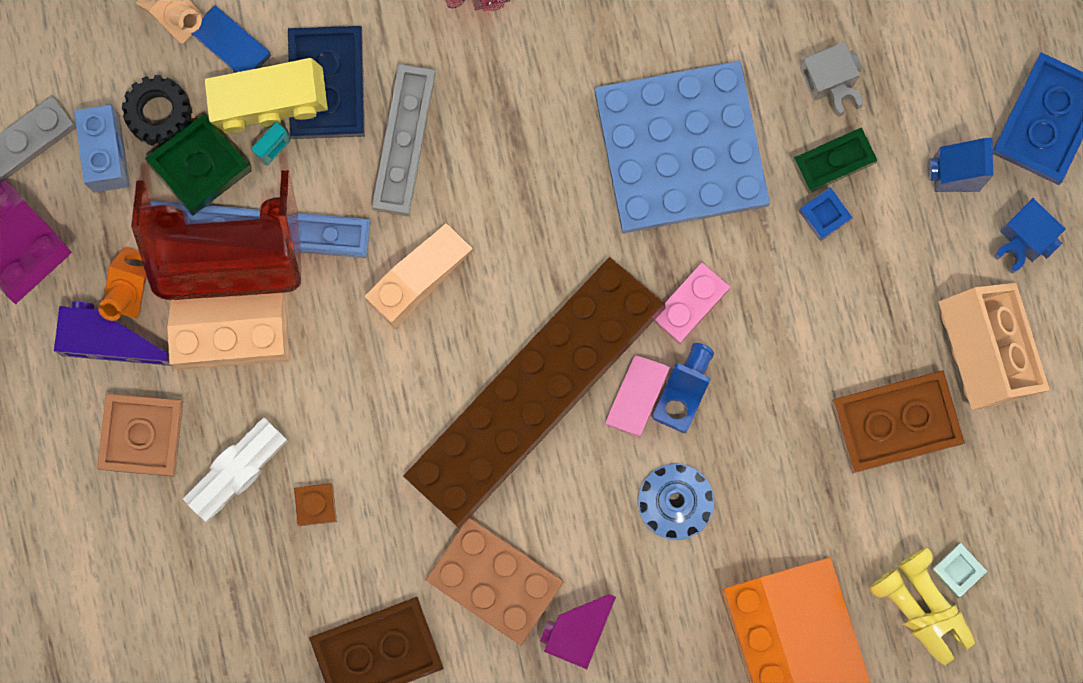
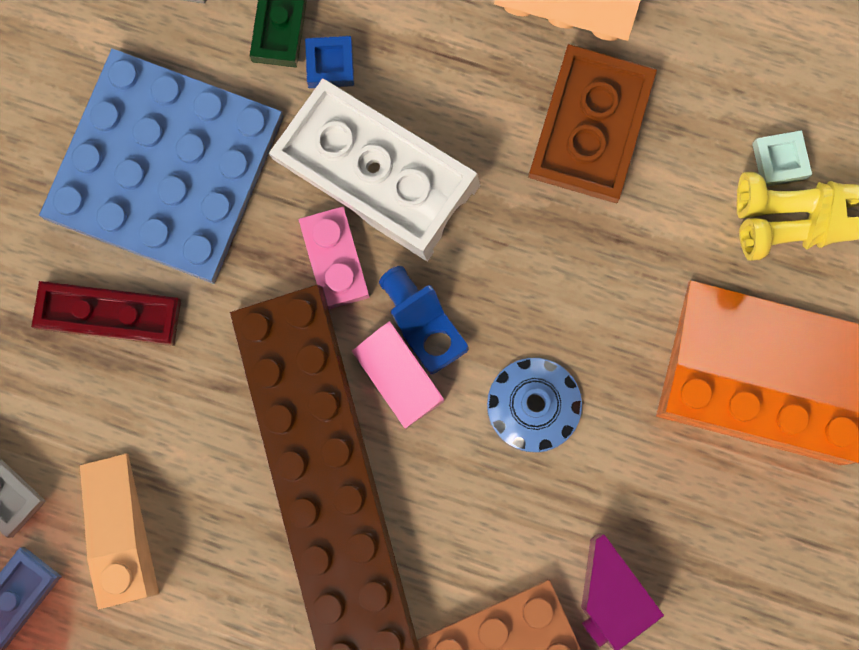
camera: 60 degrees left, 0 degrees up
(557, 175) = (106, 313): none -> dark red tile
(761, 326) = (410, 194): none -> white piece

